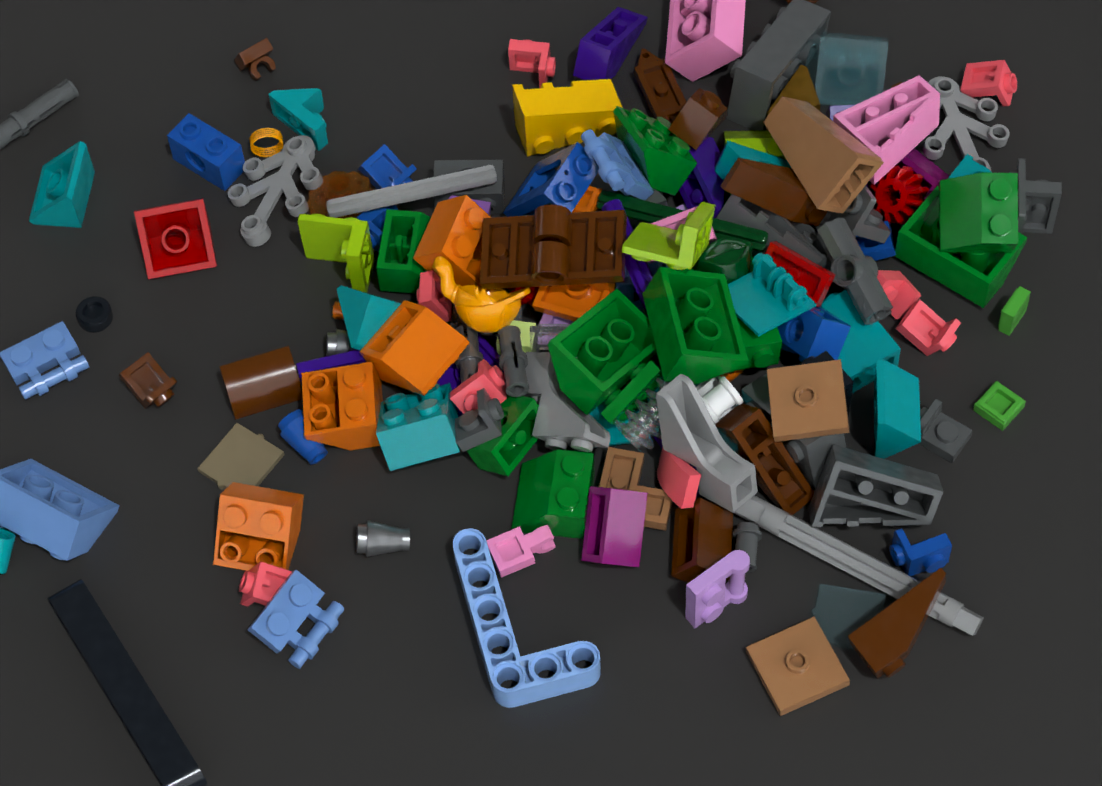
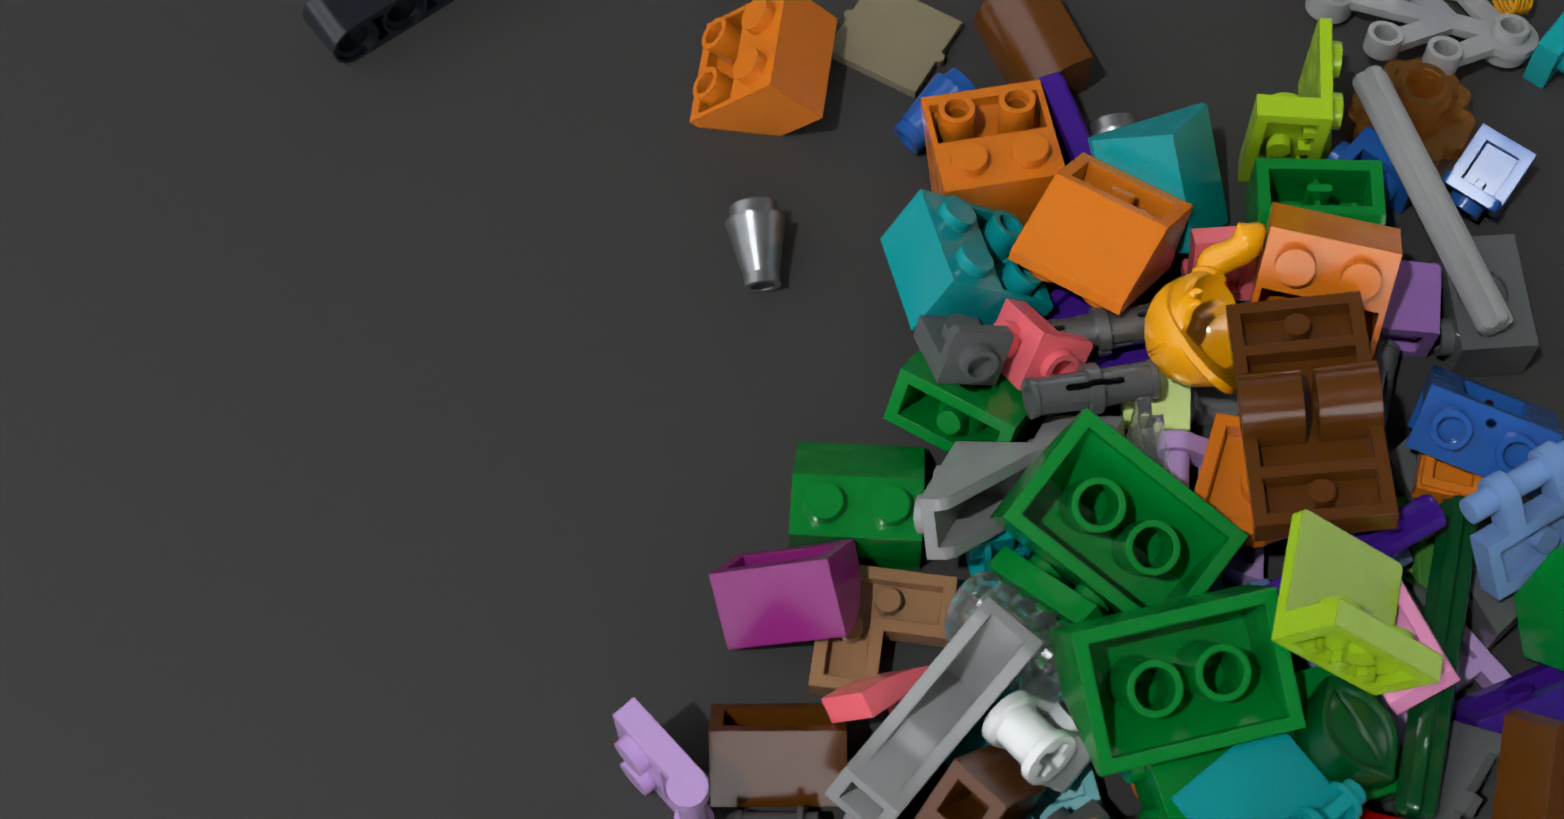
camera: 85 degrees right, 5 degrees up
(261, 583) = (659, 98): coral bracket -> none
(286, 612) = (612, 120): medium blue plate -> none
(500, 633) = (595, 441): light blue beam -> none
(515, 550) = (750, 445): bright pink plate -> none

